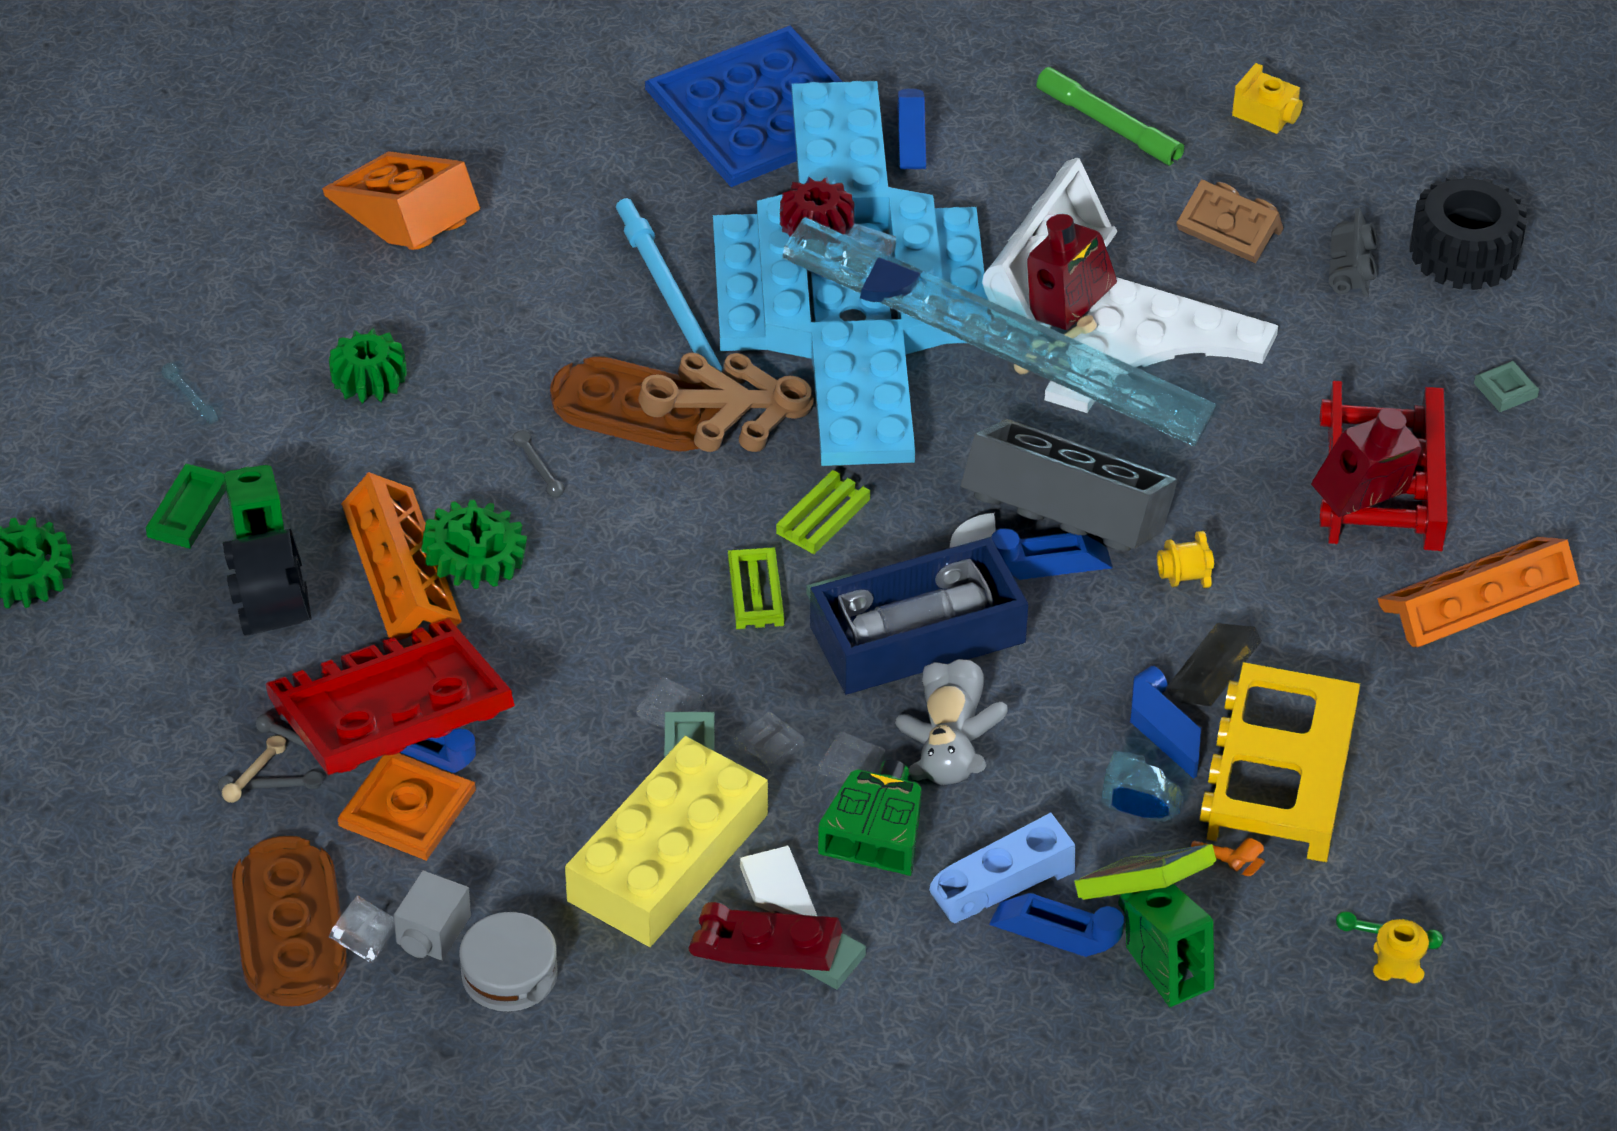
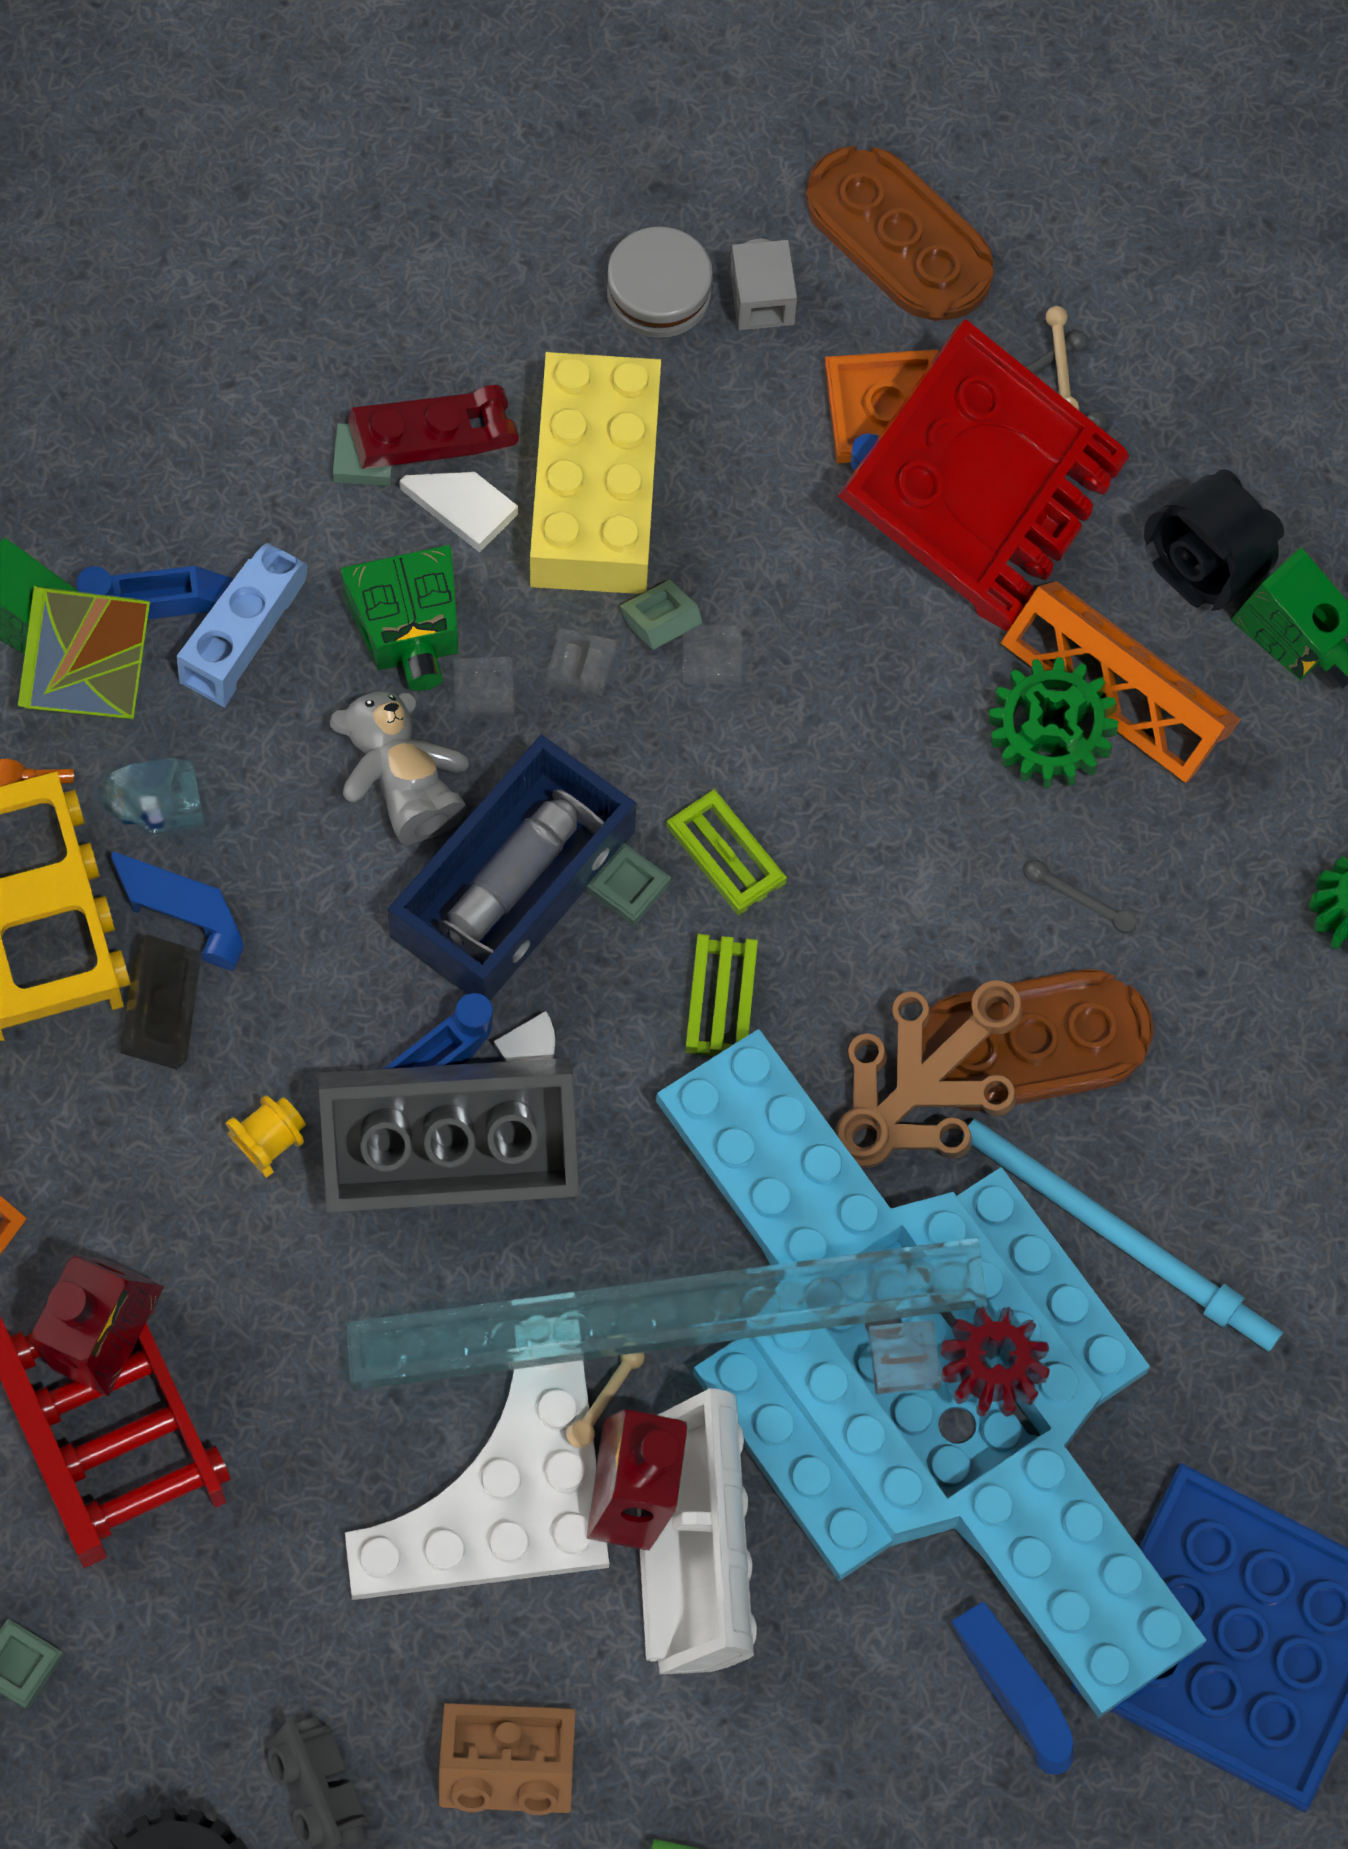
camera: 145 degrees right, 20 degrees up
(364, 929) = (817, 245): clear tile -> none
(888, 281) = (820, 1259): dark blue tile -> none

